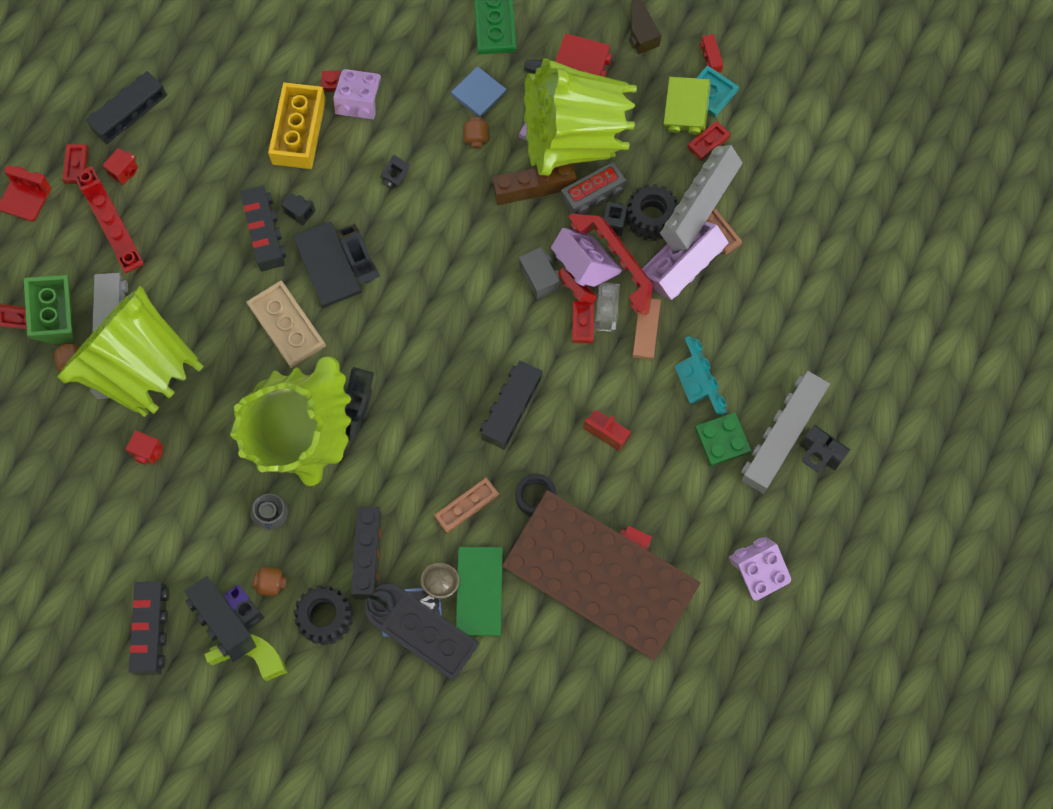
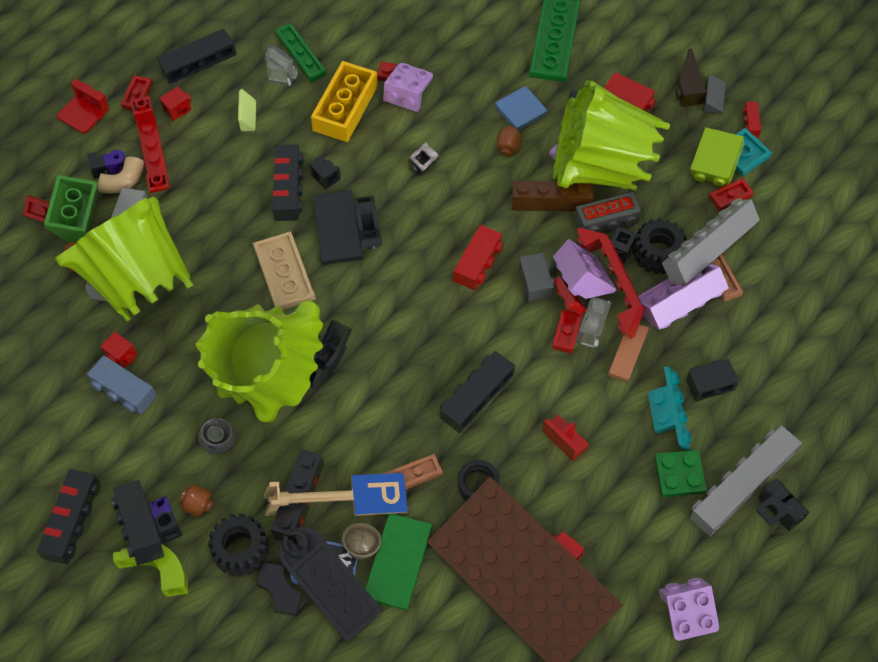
camera: 15 degrees right, 10 degrees down
(69, 250) = (106, 163): none -> leg
(93, 264) = (126, 178): none -> tan cylinder
(158, 484) = (121, 386): none -> sand blue brick
(198, 159) = (246, 111): none -> yellowish green slope
(219, 101) = (280, 66): none -> clear slope
(234, 78) = (300, 52): none -> green tile
(382, 653) = (285, 597): none -> black tile
(436, 534) = (370, 495): none -> piece
(477, 265) = (478, 258): none -> red brick
(669, 35) = (715, 95): none -> dark grey slope
(732, 339) = (712, 380): none -> black brick

